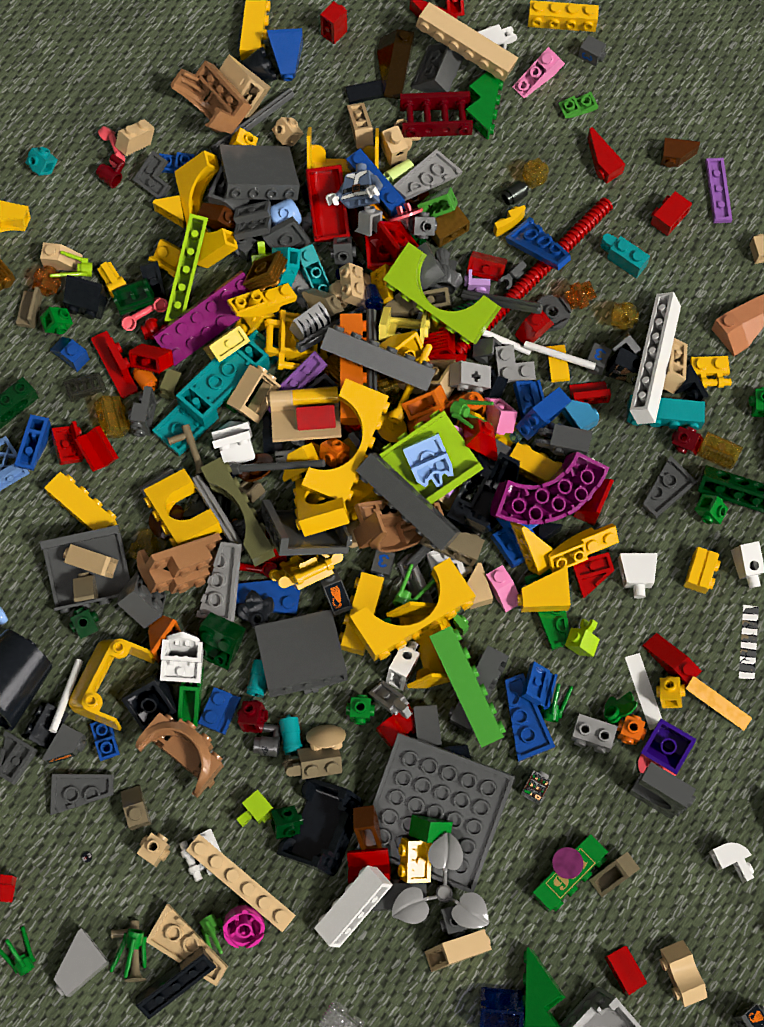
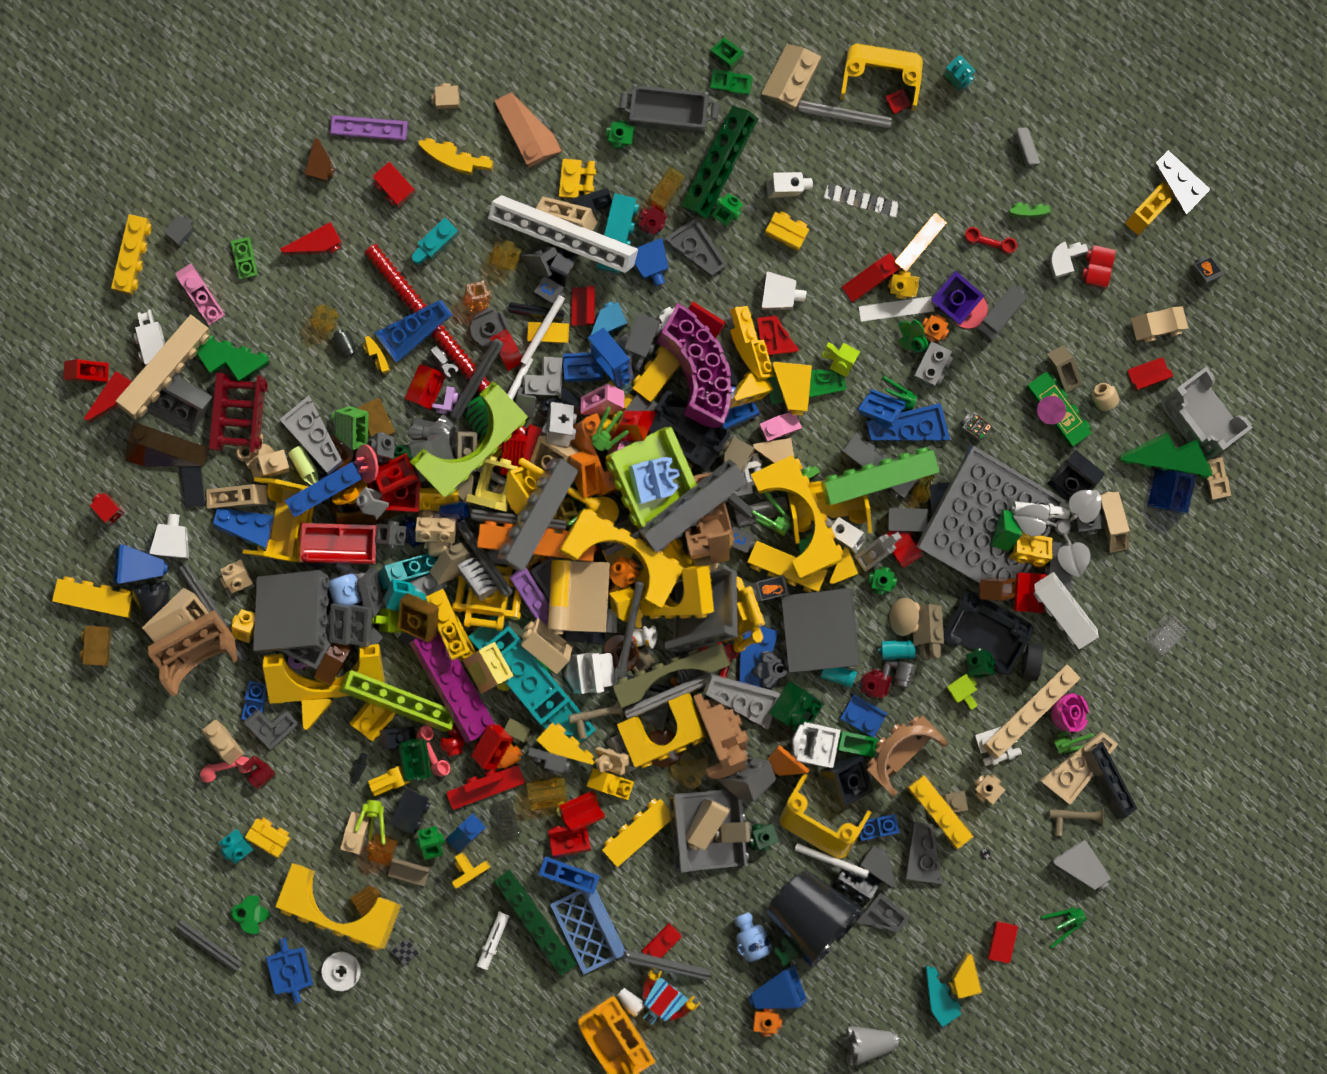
camera: 80 degrees left, 15 degrees up
(32, 353) = (464, 864): none -> yellow bracket
(51, 187) = (268, 837): none -> yellow brick
(104, 812) = (947, 820): none -> yellow arch
(126, 256) = (359, 767): none -> black bar
(126, 474) = (610, 784): none -> yellow slope
(133, 939) = (1069, 813): green plant -> none
(148, 468) = (611, 761): none -> tan hips
(160, 419) = (558, 743): none -> yellow slope
(211, 32) = (96, 645): none -> pearl gold brick
(274, 485) = (645, 637): none -> white animal
(294, 878) = (1032, 662): none -> black tyre
(314, 78) = (170, 539): none -> white torso
(315, 417) = (584, 585): red panel -> none
(334, 135) = (250, 526): none -> blue wing
(358, 189) = (336, 509): torso -> none
(368, 669) = (844, 569): none -> yellow slope
(458, 876) = (1054, 511): none -> white pin
(460, 739) = (921, 492): none -> clear yellow plate
(503, 901) = (1075, 475): none -> black slope
(576, 370) = (533, 311): none -> black axle
(592, 922) = (1105, 396): none -> tan head
(645, 446) = (652, 261): none -> blue torso
(706, 263) = (447, 156): none -> yellow slope
(731, 898) = (1099, 267): none -> red brick
(734, 795) = (974, 236): none -> red bar

